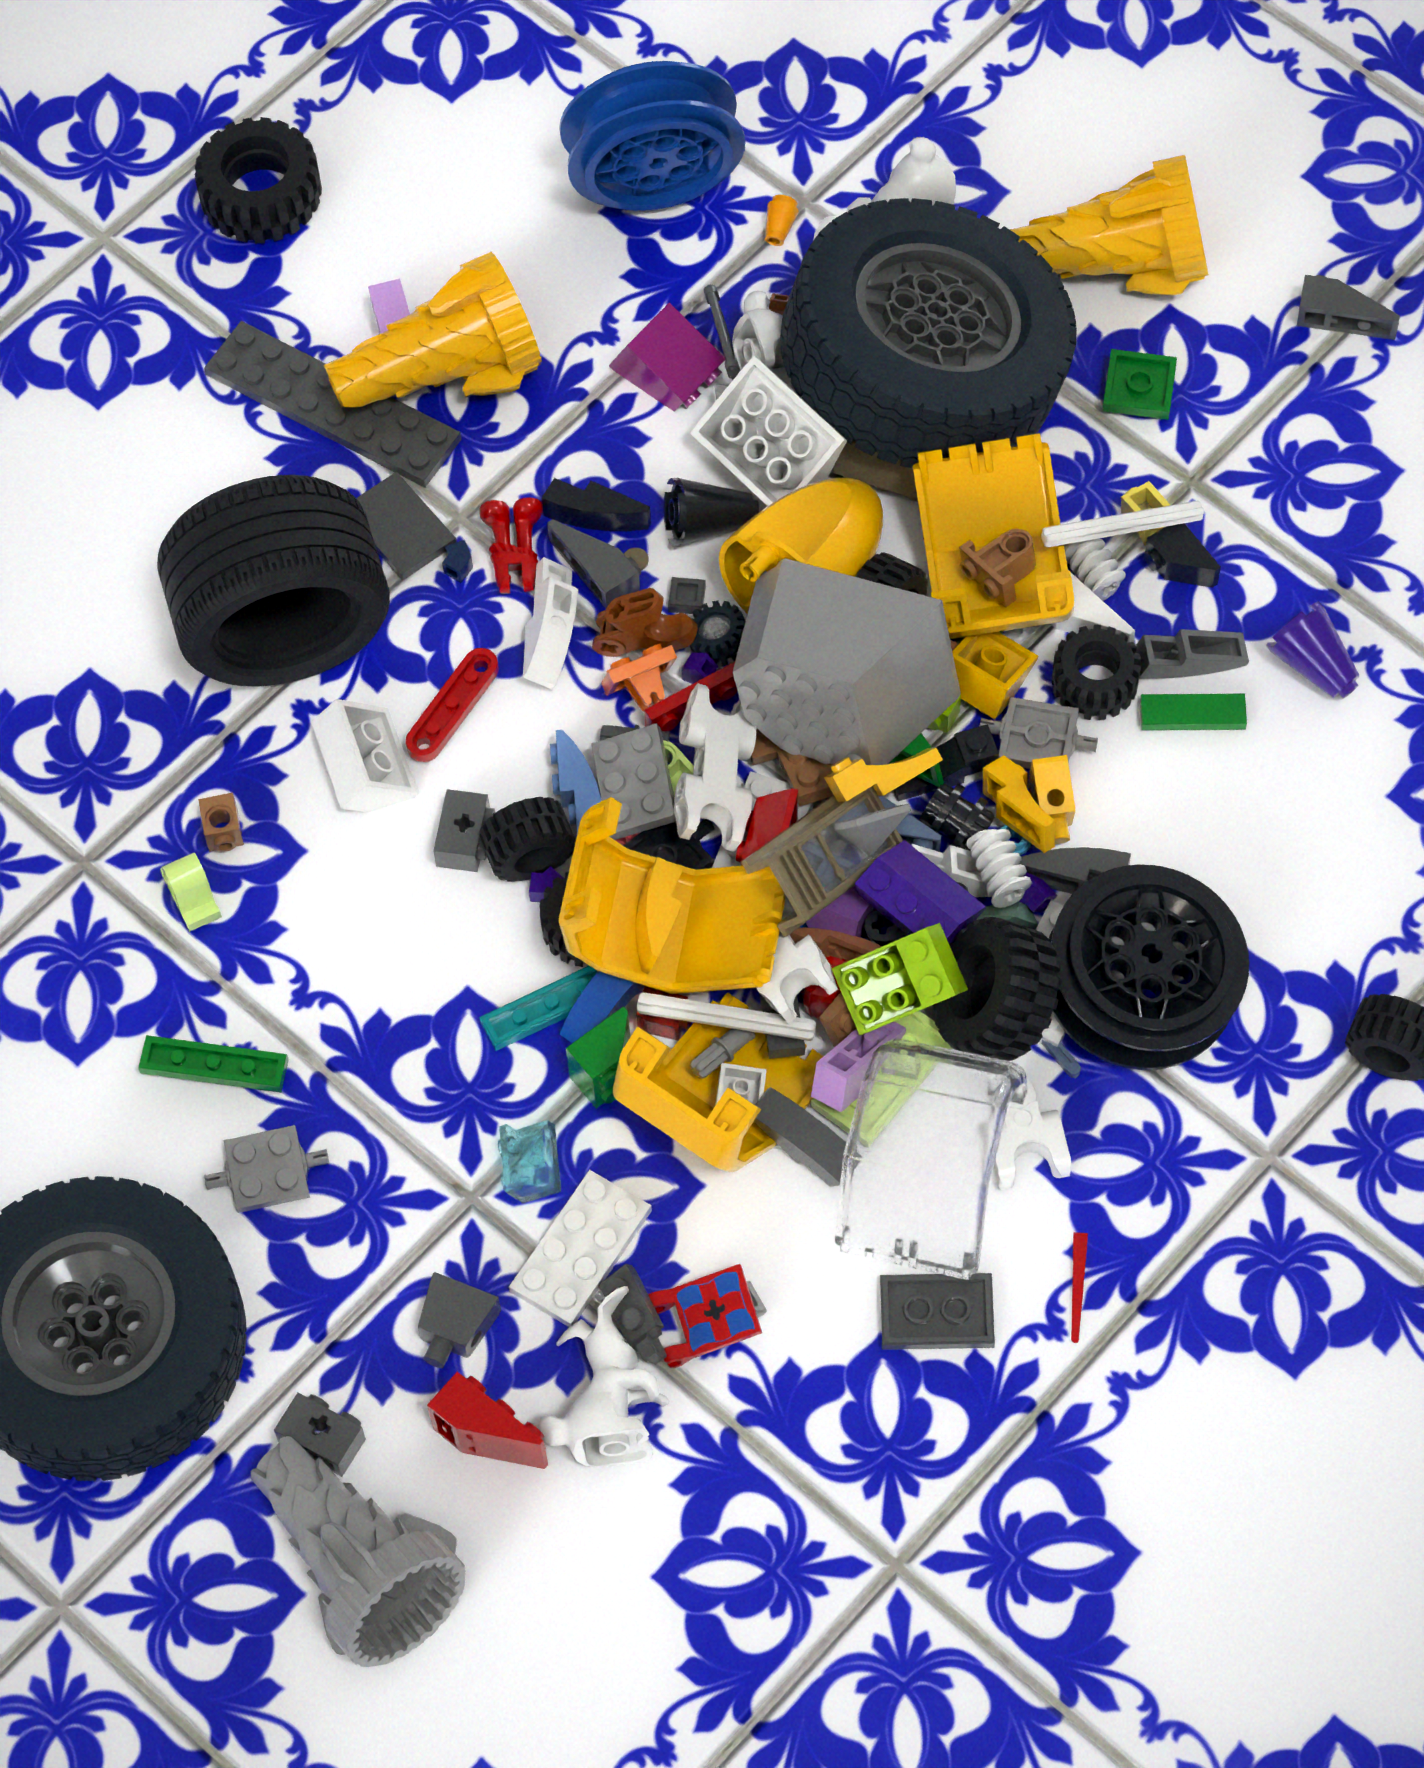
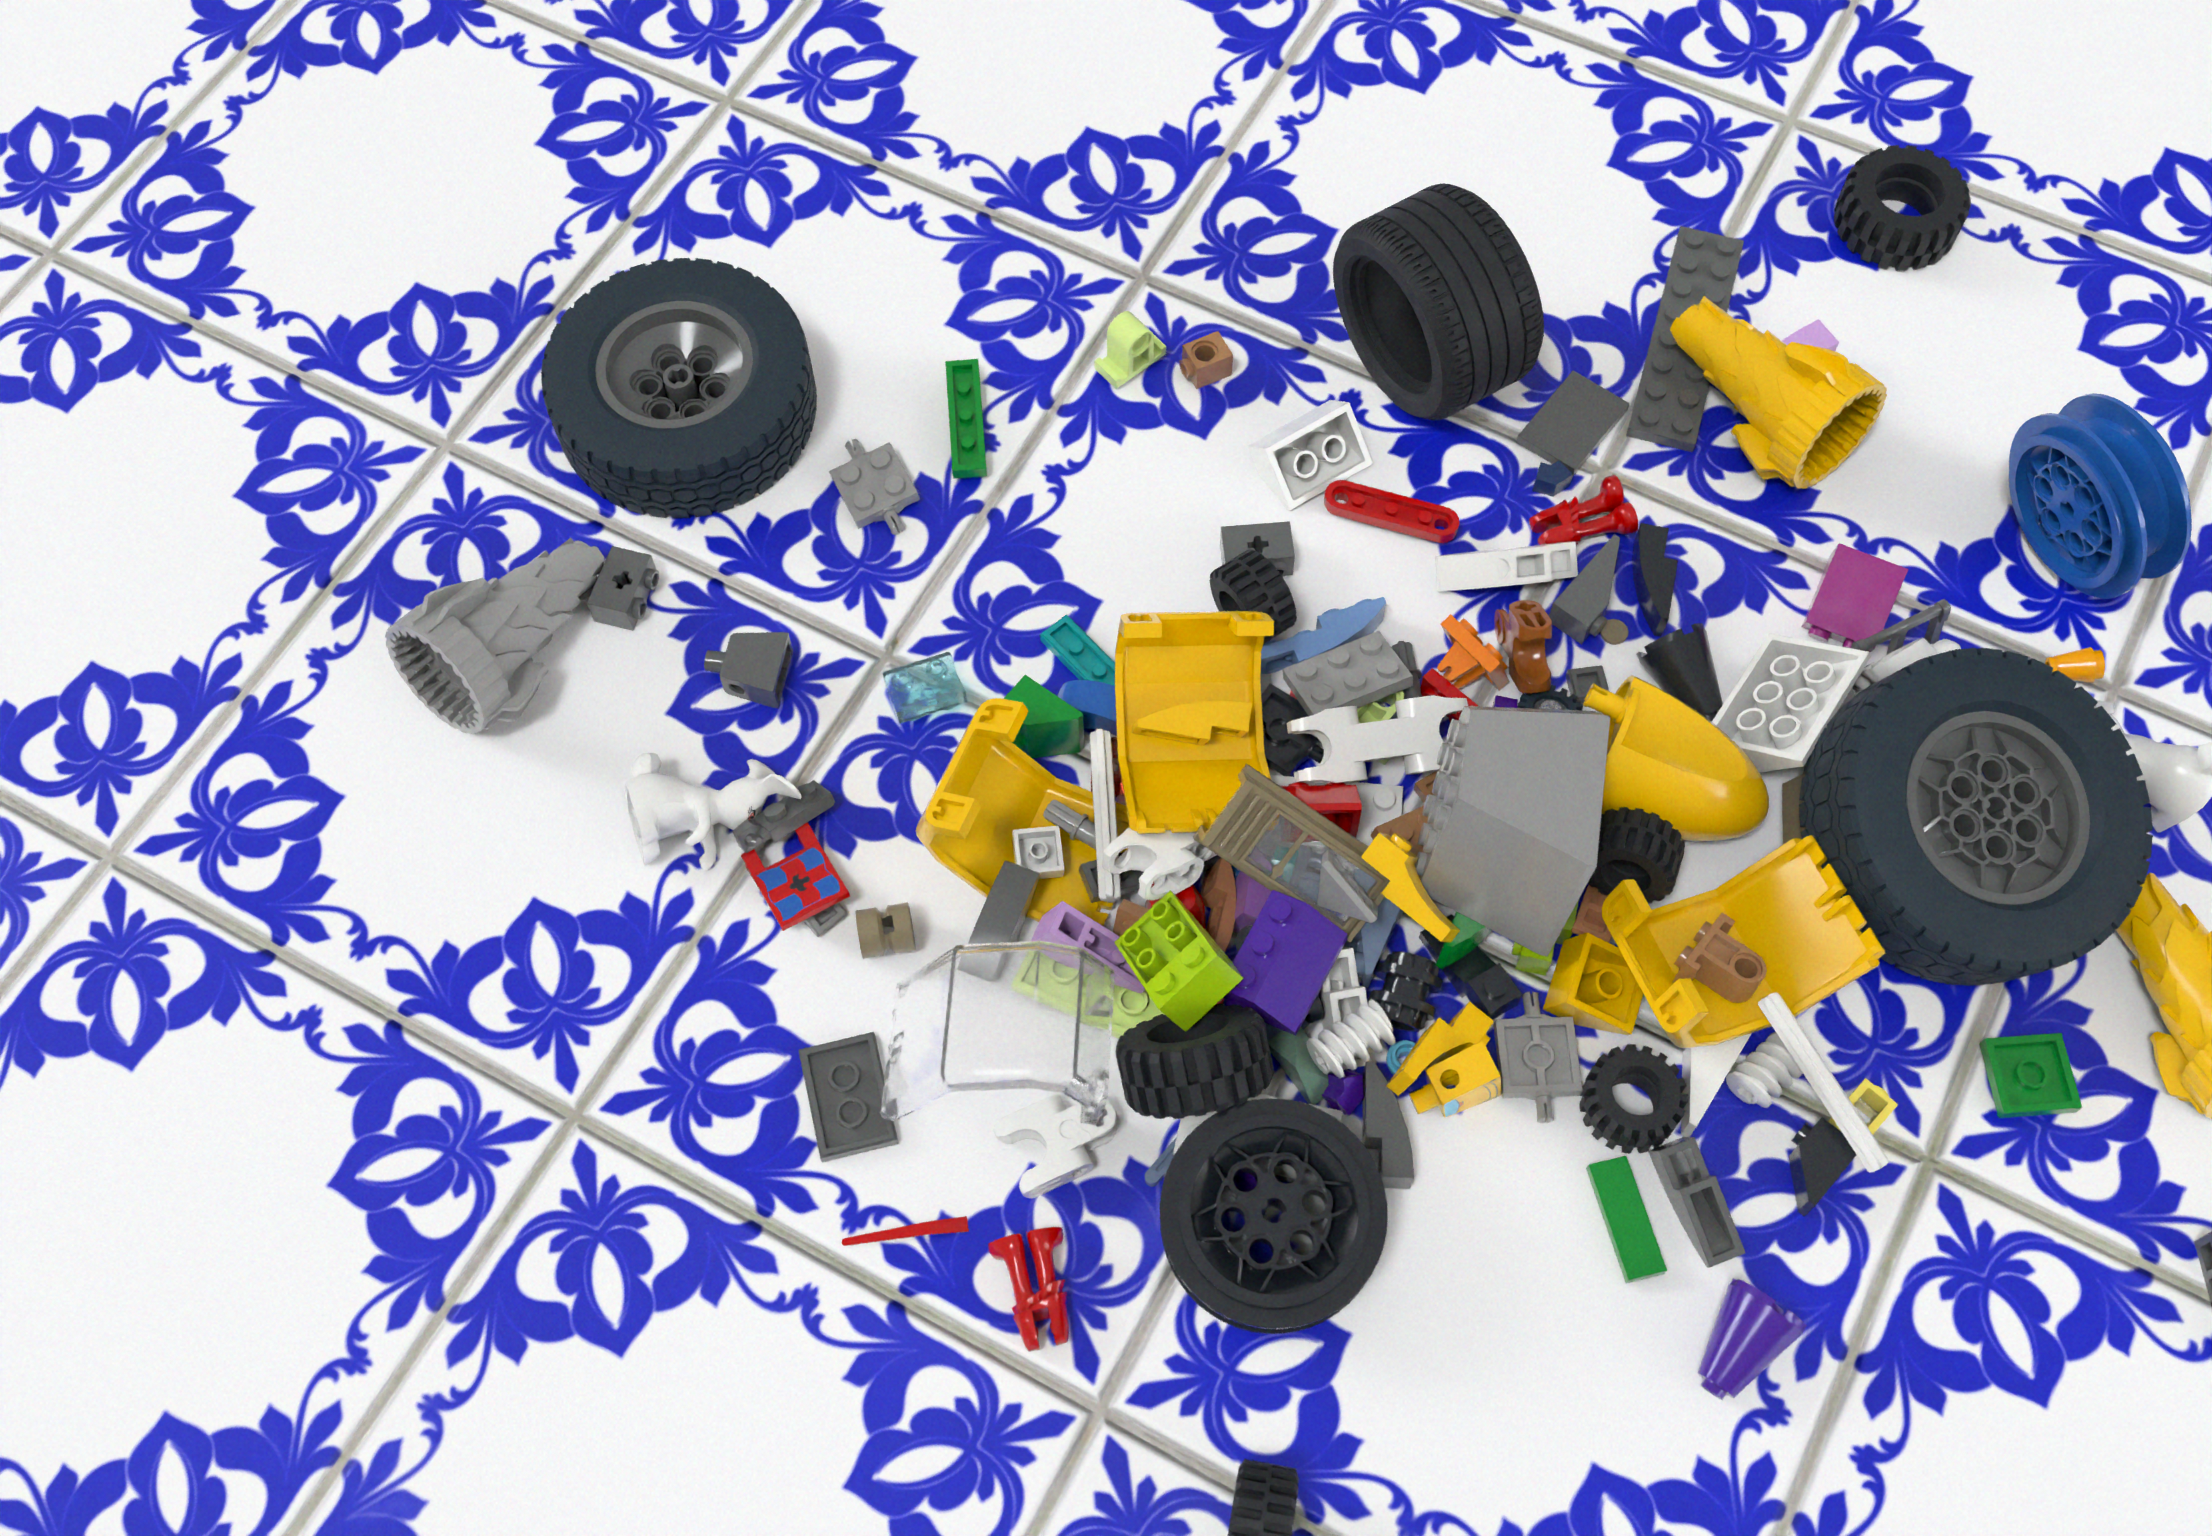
camera: 75 degrees right, 0 degrees up
(484, 1427) = (645, 706): red slope -> none
(580, 1248) = (850, 757): white plate -> none
(783, 1242) = (872, 933): none -> dark tan wheel
(1169, 1173) = (1050, 1299): none -> red piece

